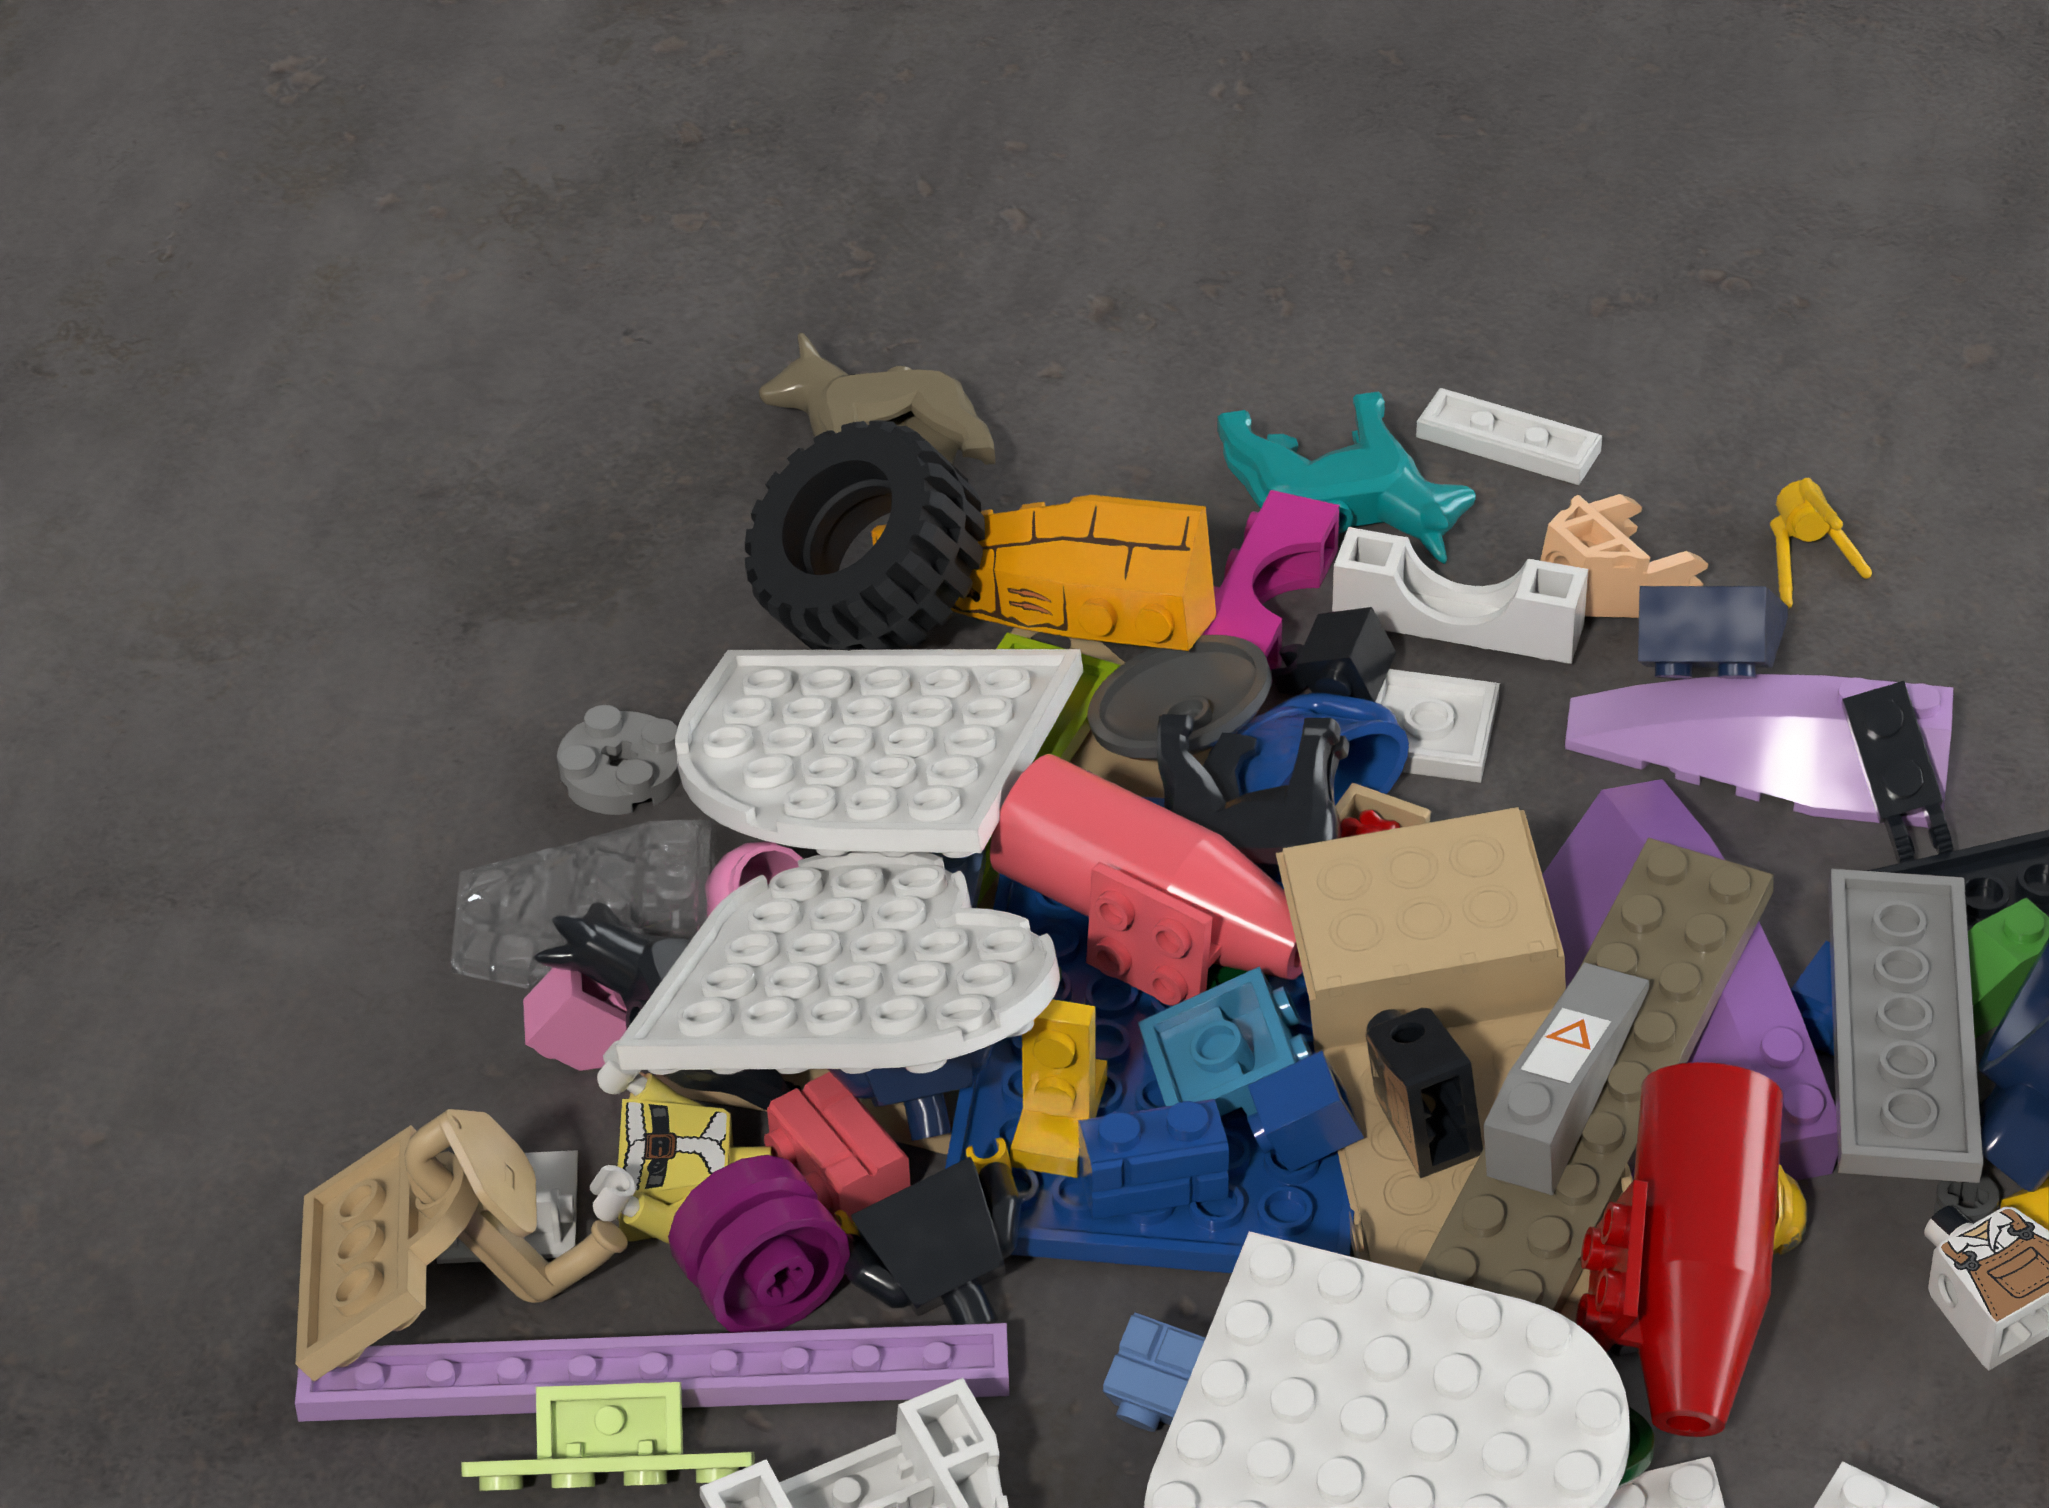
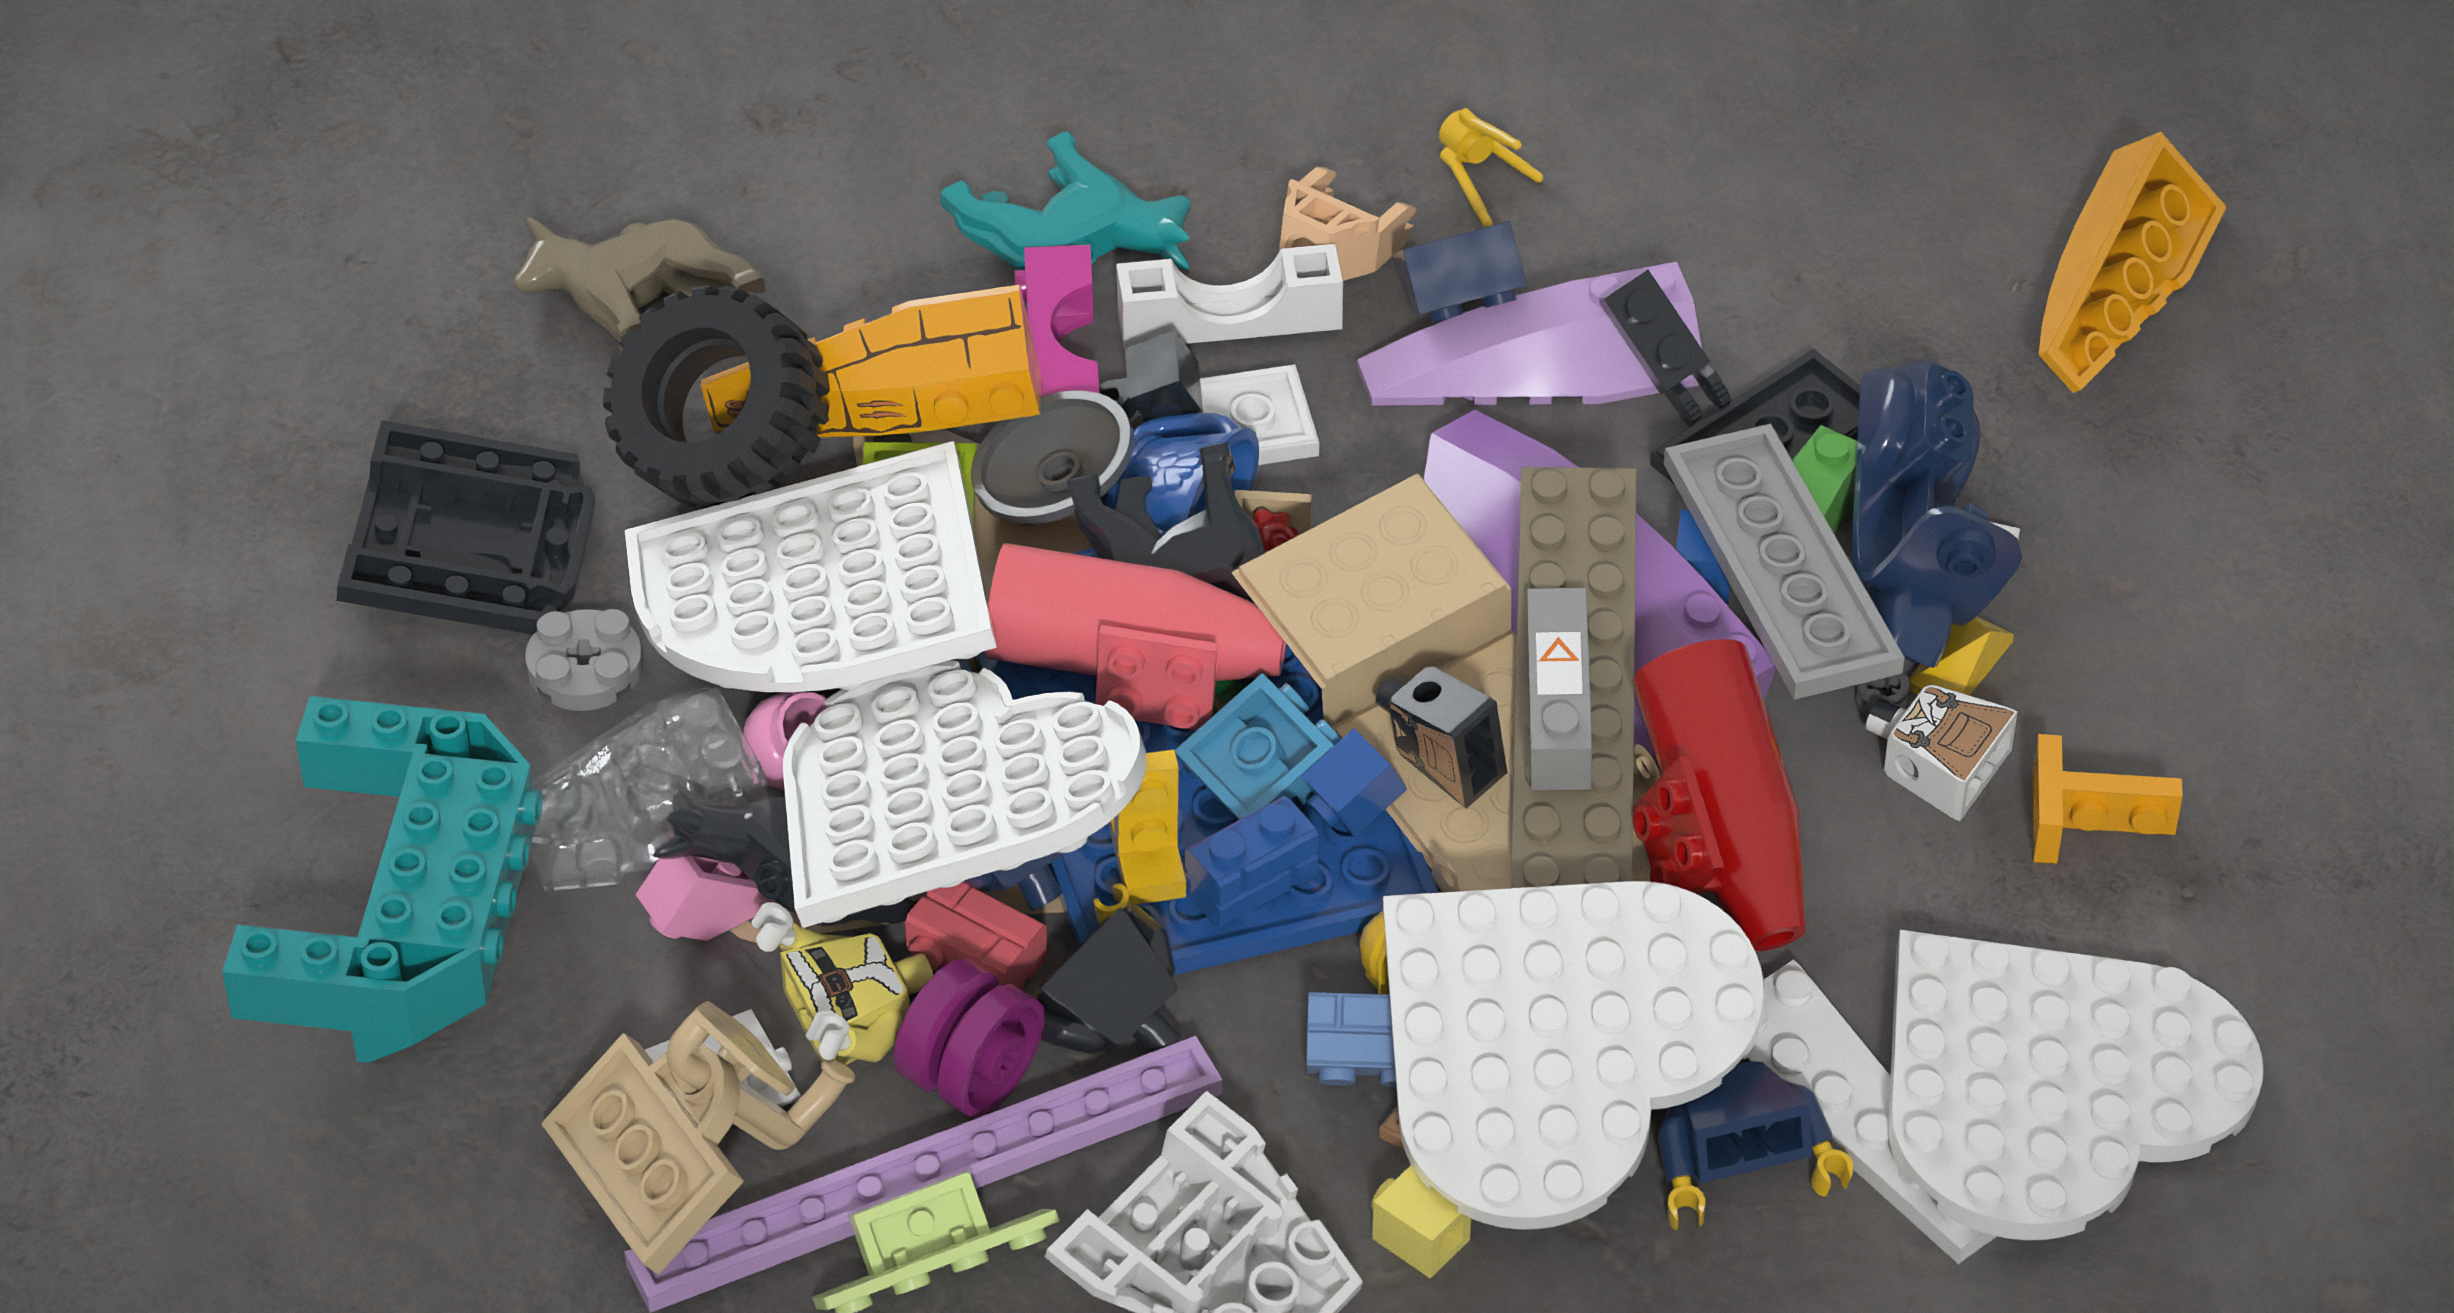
camera: 25 degrees left, 5 degrees up
(314, 935) = (439, 888): none -> teal wedge
(558, 607) = (467, 529): none -> black wedge
(1509, 436) = (1182, 138): white tile -> none

